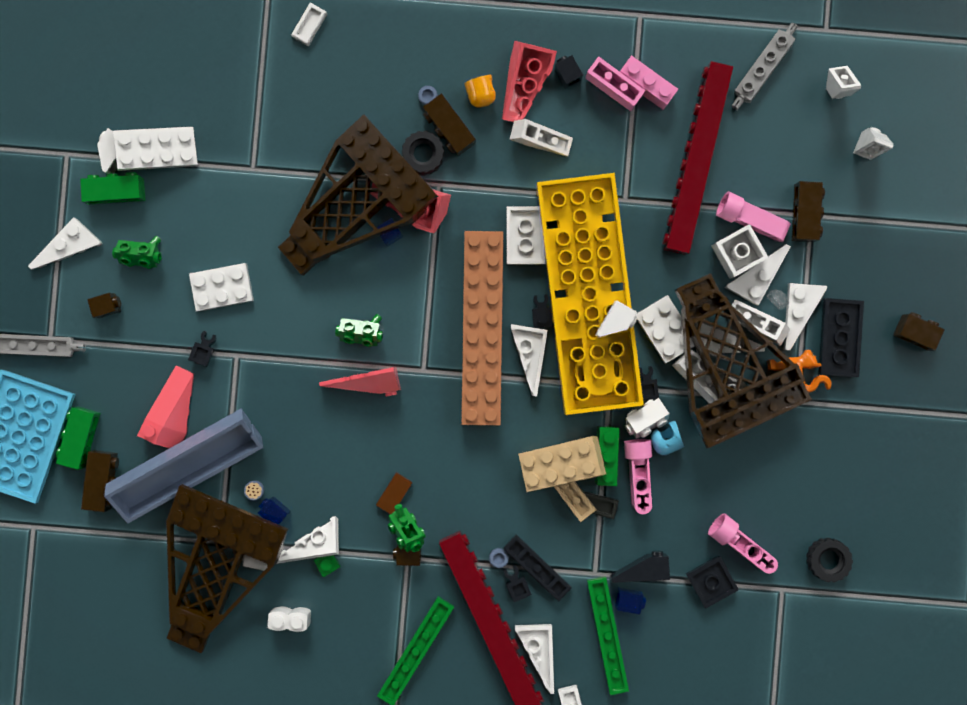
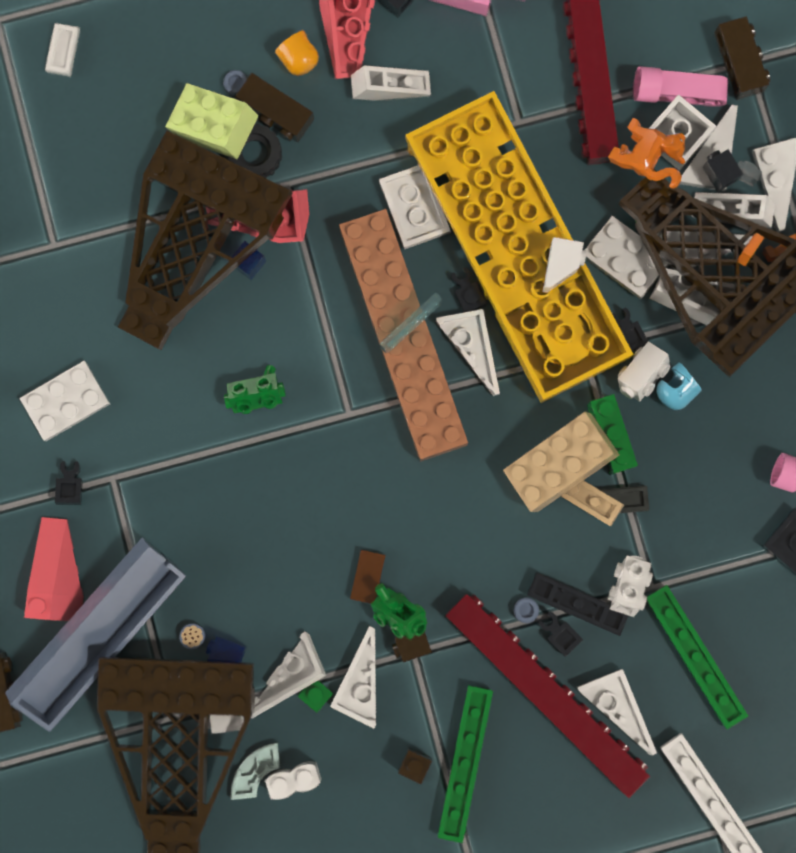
camera: 20 degrees left, 5 degrees down
(264, 600) = (253, 770): none -> light aqua tile
(358, 570) = (358, 689): none -> white wing
(377, 382) = (299, 445): coral wedge -> none
(379, 640) = (415, 765): none -> dark brown brick
(399, 119) = (212, 120): none -> yellowish green brick
(490, 324) = (411, 323): none -> clear light blue tile
(582, 565) = (632, 579): none -> white brick
(630, 601) = (707, 603): clear blue brick -> none
(638, 453) = (649, 418): bright pink beam -> none
(646, 568) = (712, 555): black slope -> none
(710, 259) = (649, 147): none -> orange animal
(757, 361) = (750, 249): none -> orange tile
(760, 291) = (722, 169): none -> black brick

